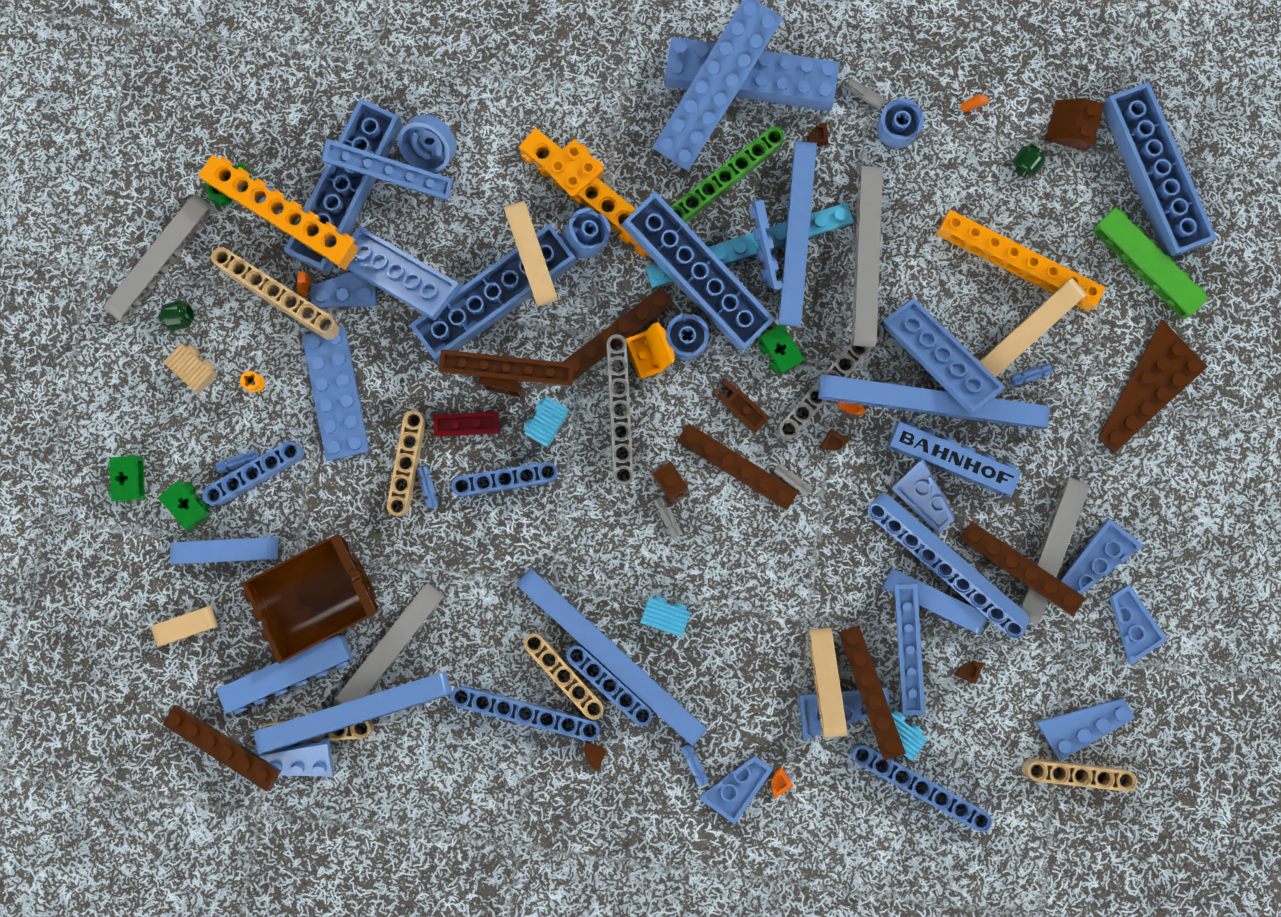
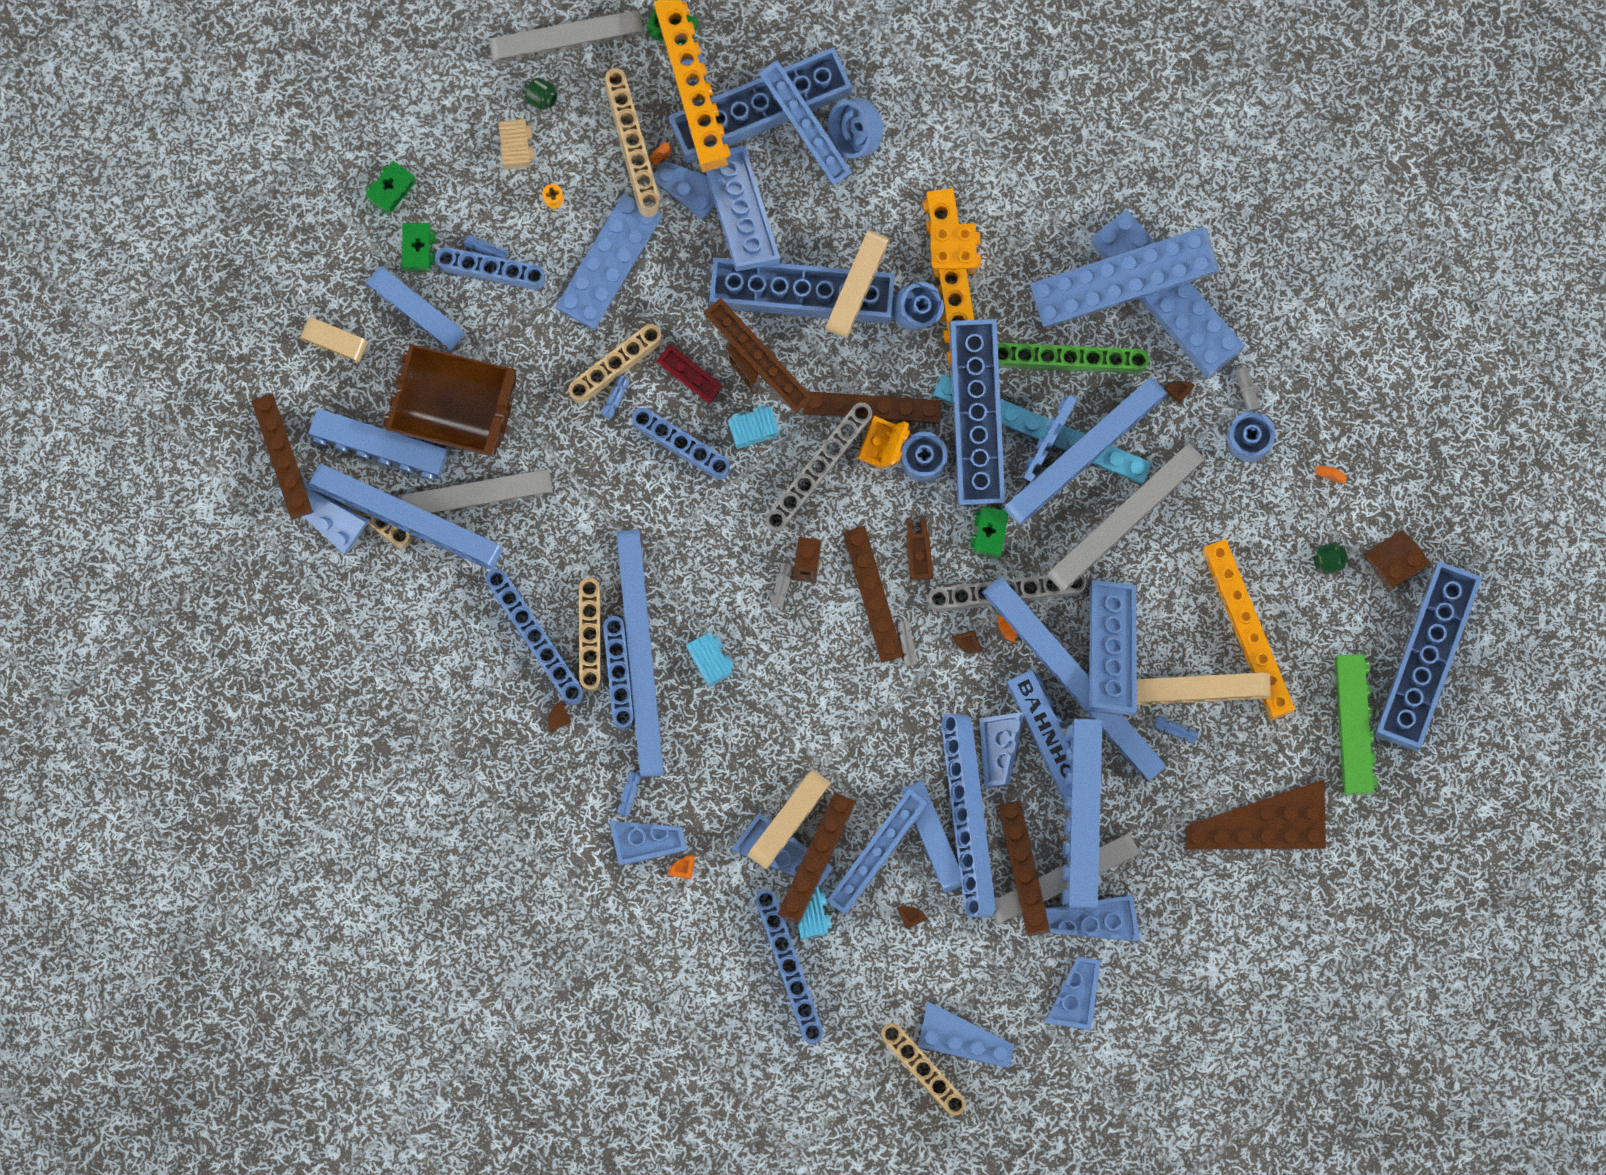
camera: 45 degrees right, 5 degrees down
(1037, 495) = (1084, 815): none -> medium blue brick

